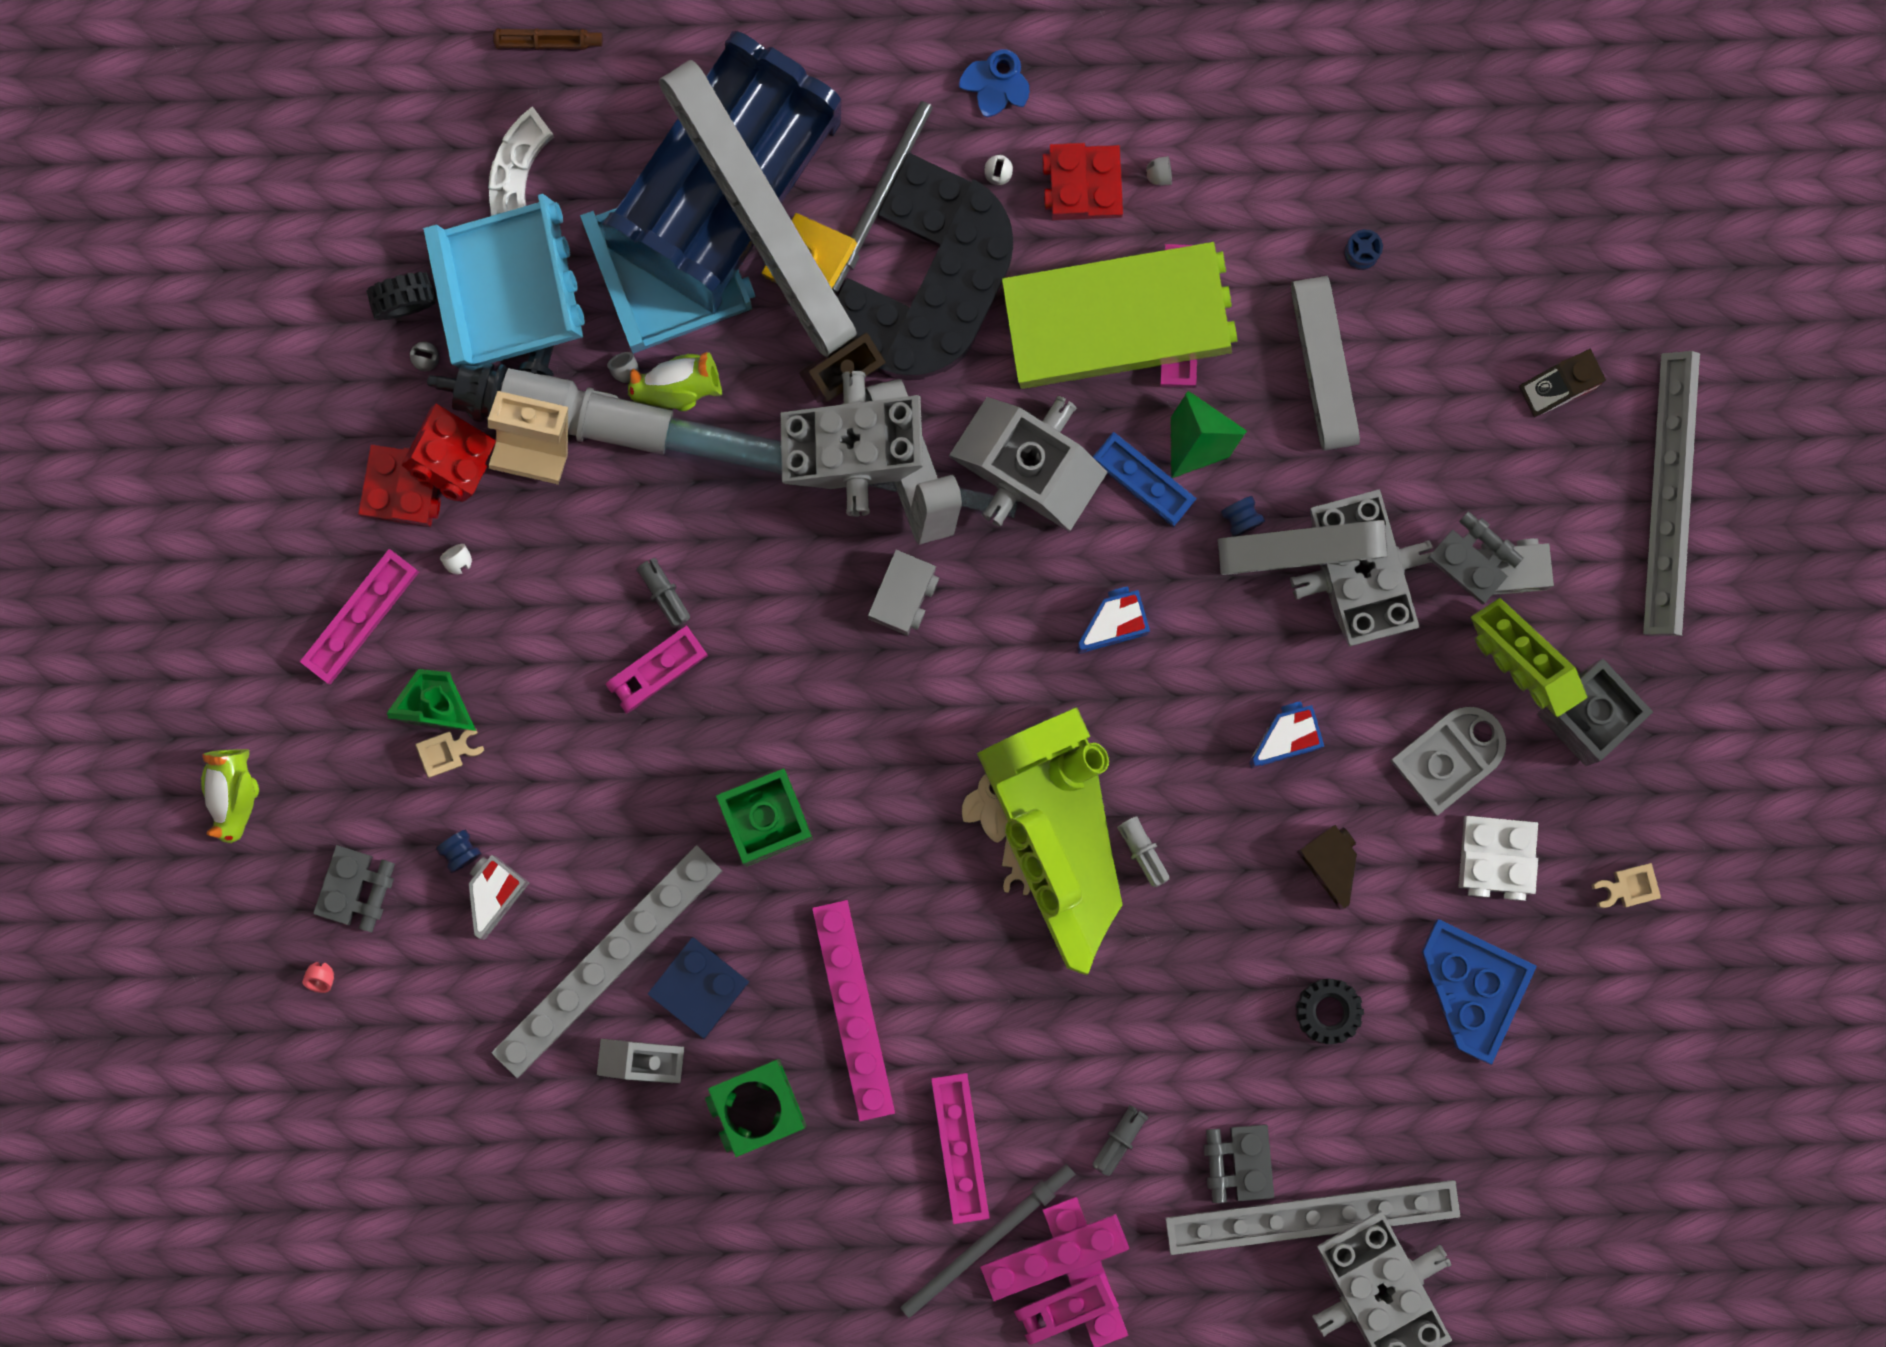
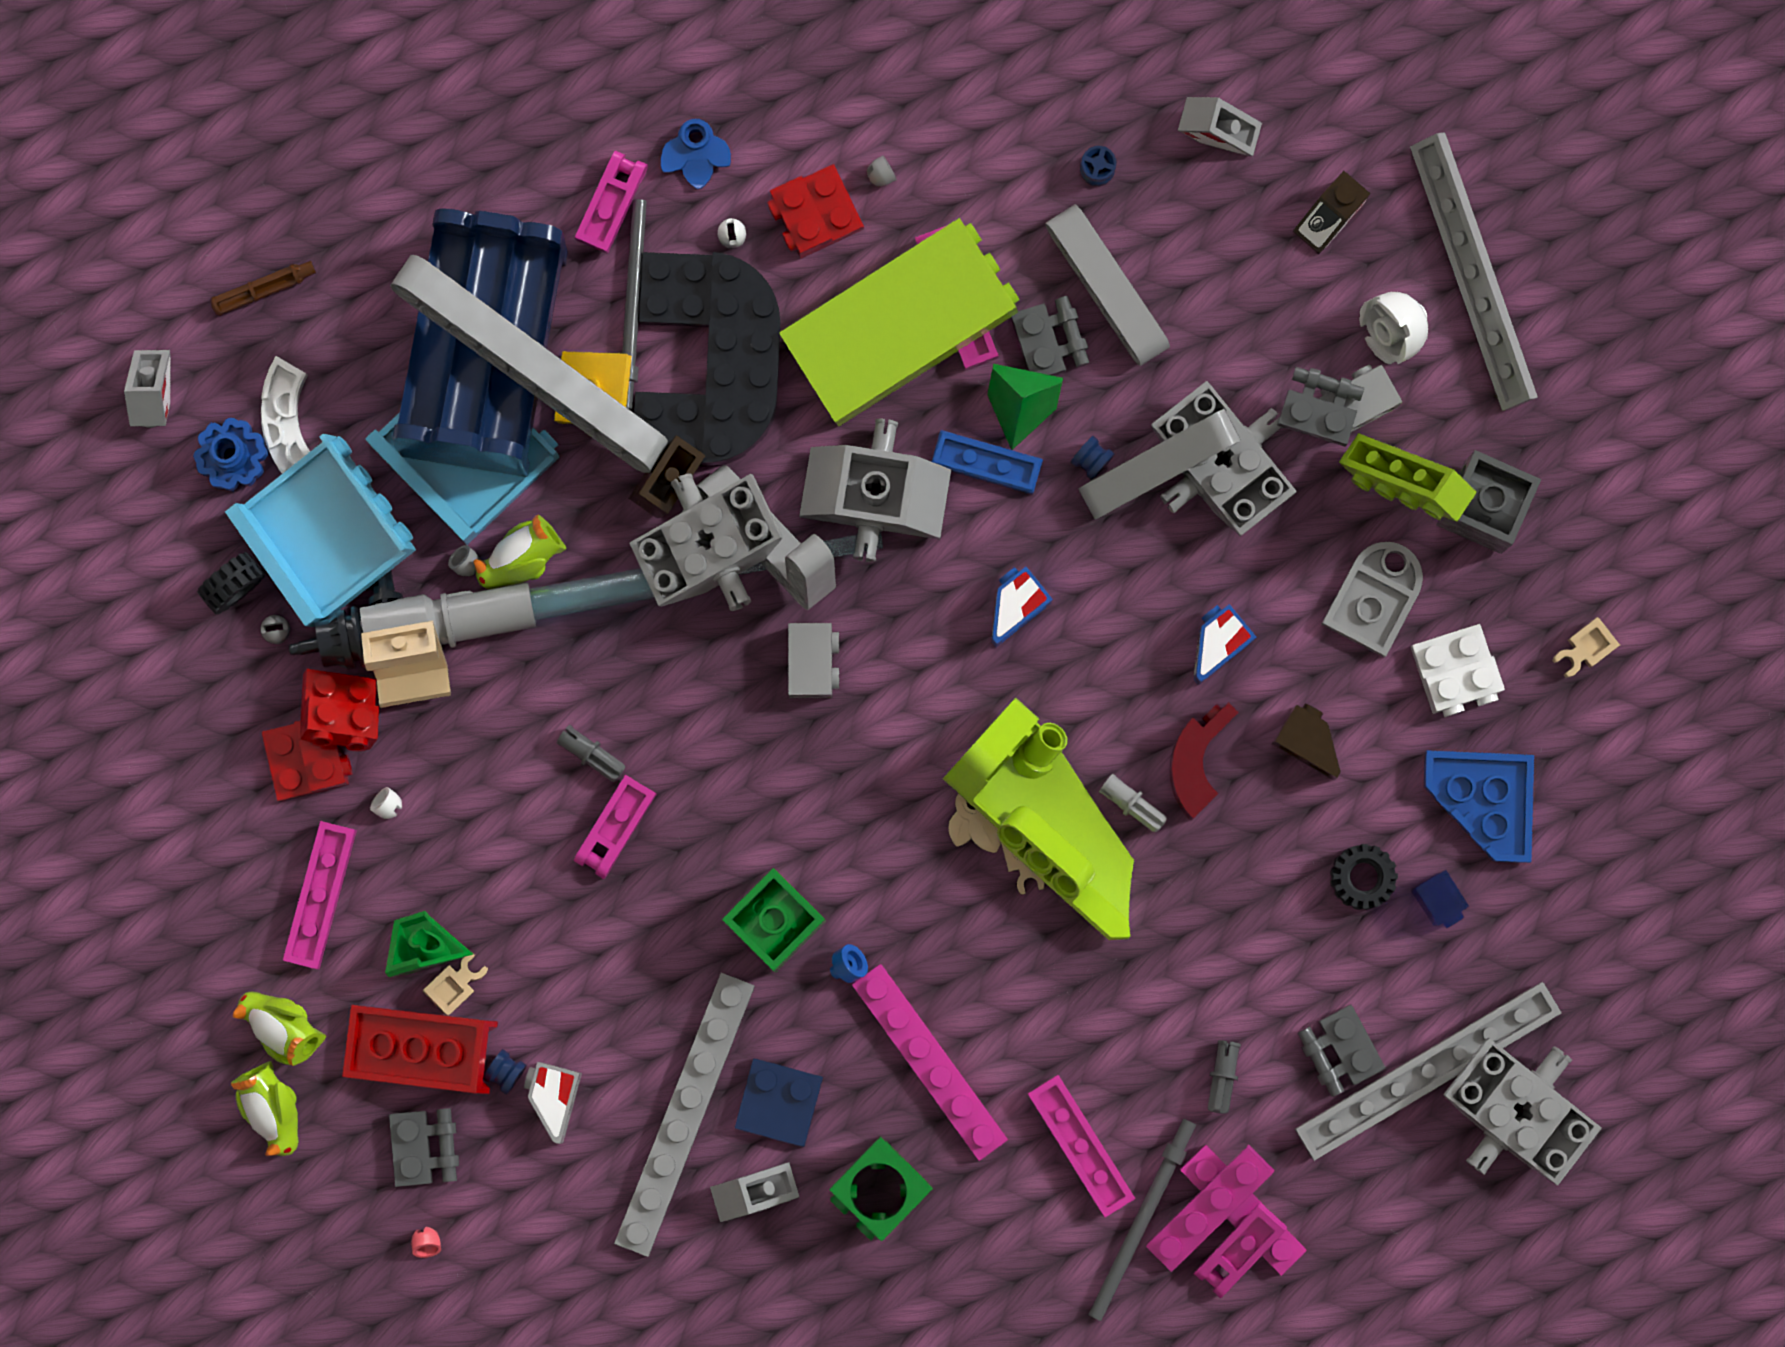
camera: 20 degrees left, 0 degrees up
(270, 722) = (279, 1027): none -> lime animal
(387, 796) = (417, 1049): none -> red plate
(403, 87) = (148, 388): none -> light grey slope
(456, 194) = (243, 466): none -> blue plant
(817, 887) = (849, 964): none -> blue tile
(898, 95) = (610, 203): none -> dark pink plate
(1207, 840) = (1186, 762): none -> dark red arch
(1239, 389) = (1039, 342): none -> dark grey plate
(1392, 1063) = (1441, 900): none -> clear blue brick
(1492, 259) = (1219, 125): none -> light grey slope
(1577, 513) = (1396, 326): none -> white cylinder

